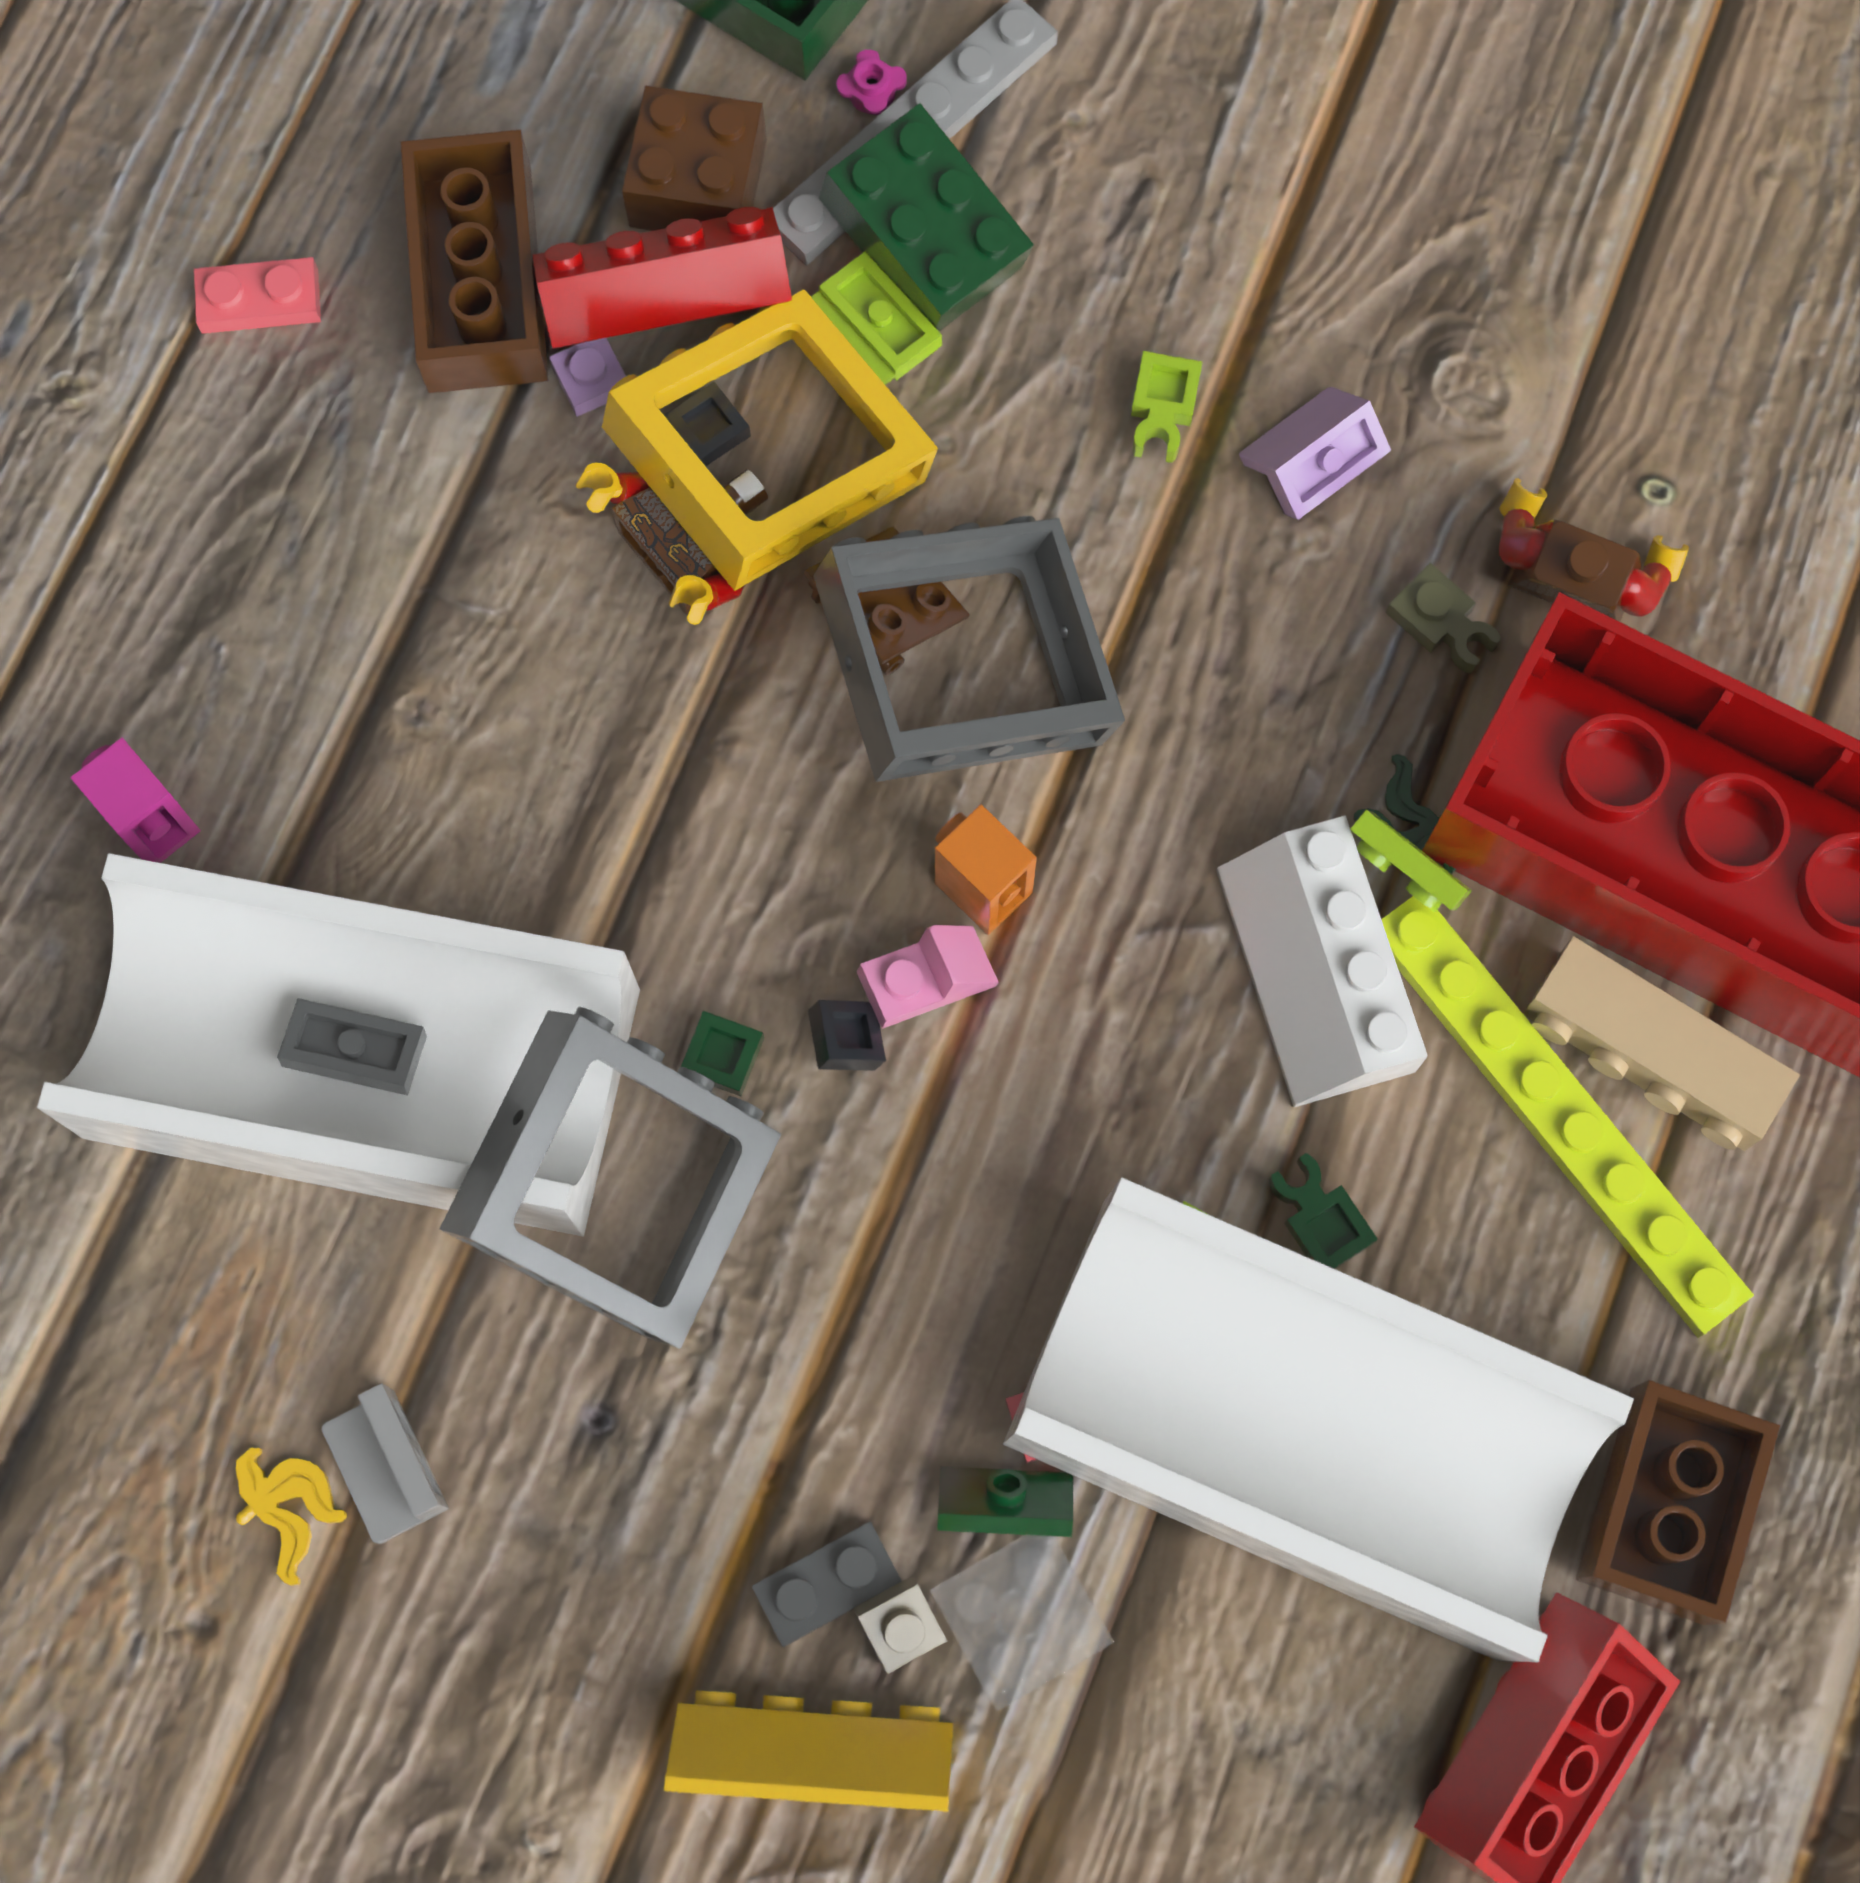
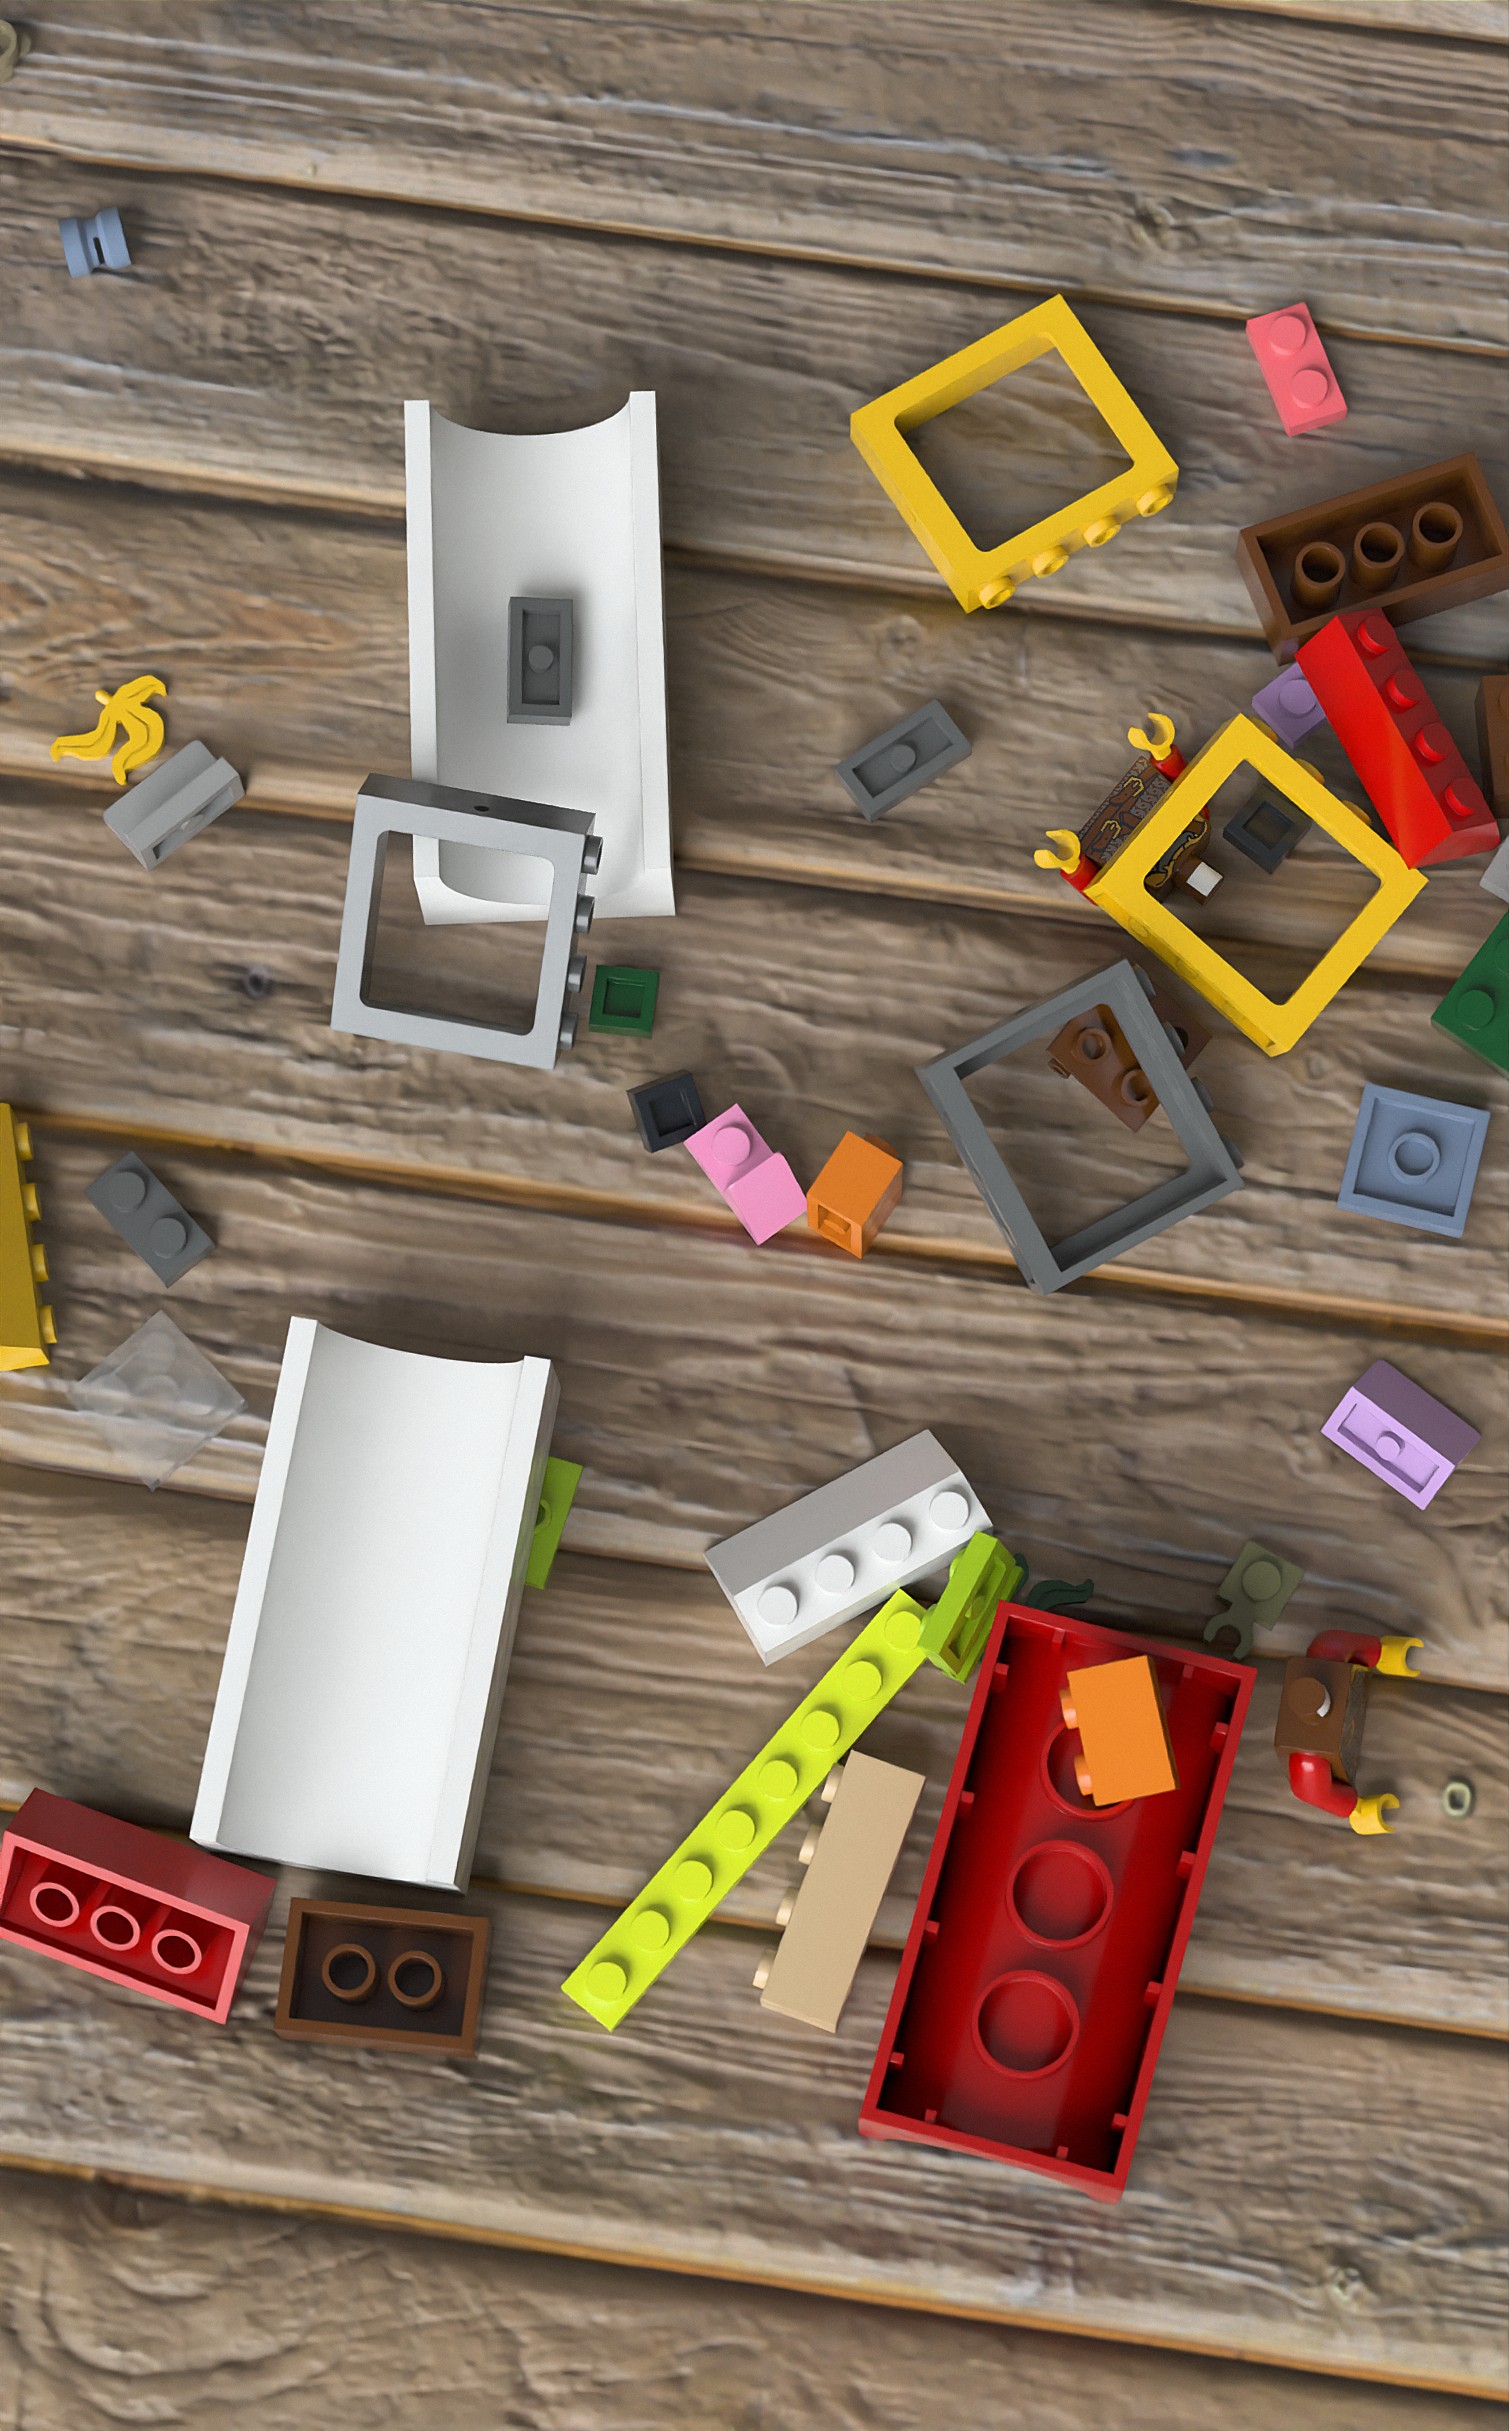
camera: 80 degrees right, 0 degrees up
(134, 802) = (731, 405): dark pink brick -> none
(298, 652) = (992, 576): none -> yellow piece
(546, 734) = (902, 760): none -> dark grey plate
(877, 318) = (1420, 959): lime plate -> none
(900, 1624) = (124, 1290): plate -> none
(1005, 1501) = (252, 1353): dark green plate -> none
(1060, 377) = (1413, 1160): none -> sand blue plate
(1164, 398) = (1421, 1267): lime plate -> none
(1326, 1224) = (587, 1603): dark green plate -> none
(1608, 718) = (1120, 1730): none -> orange brick

